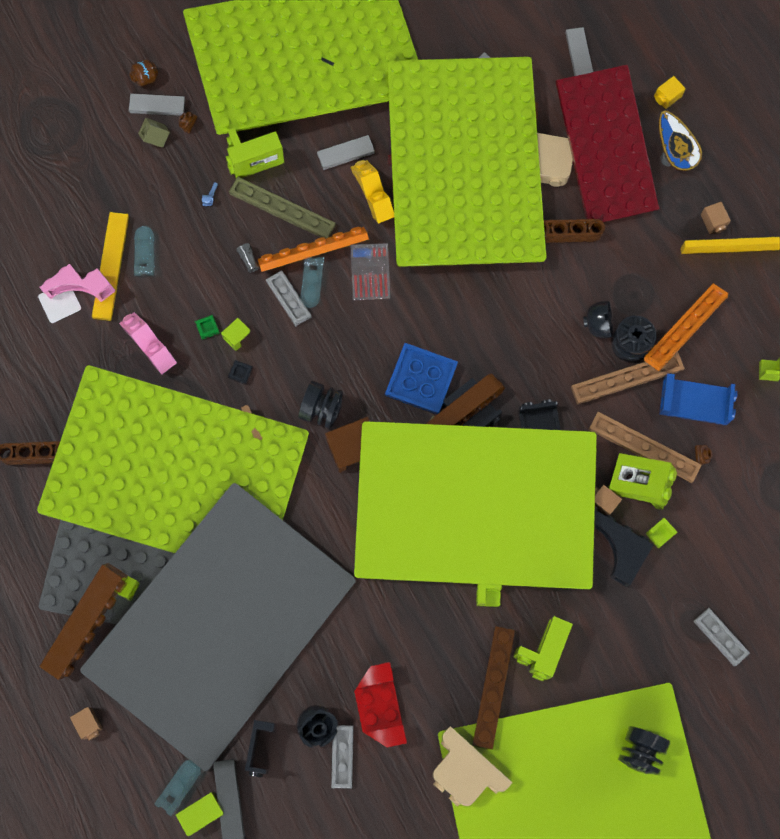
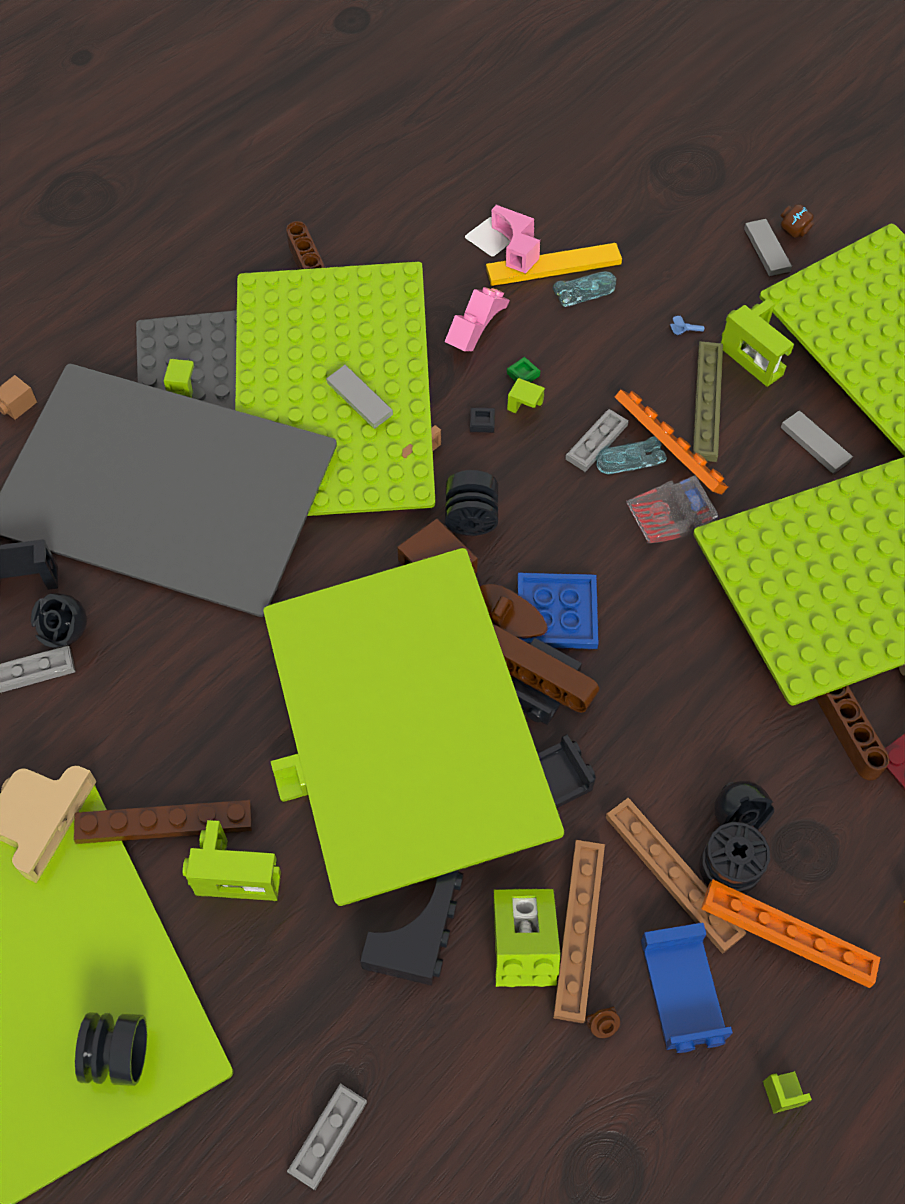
camera: 75 degrees right, 15 degrees down
(83, 621) = (128, 350): reddish brown brick -> none
(154, 132) = (731, 251): olive panel -> none
(187, 121) = (763, 278): reddish brown plate -> none
(199, 453) = (359, 396): none -> light grey tile
(246, 253) = (630, 380): dark grey pin -> none
(372, 188) = (784, 474): yellow arch -> none
(379, 706) = (103, 690): red piece -> none
(416, 409) = (512, 612): none -> reddish brown shield
(606, 500) = (477, 893): medium nougat brick -> none
(661, 533) = (457, 989): lime panel -> none

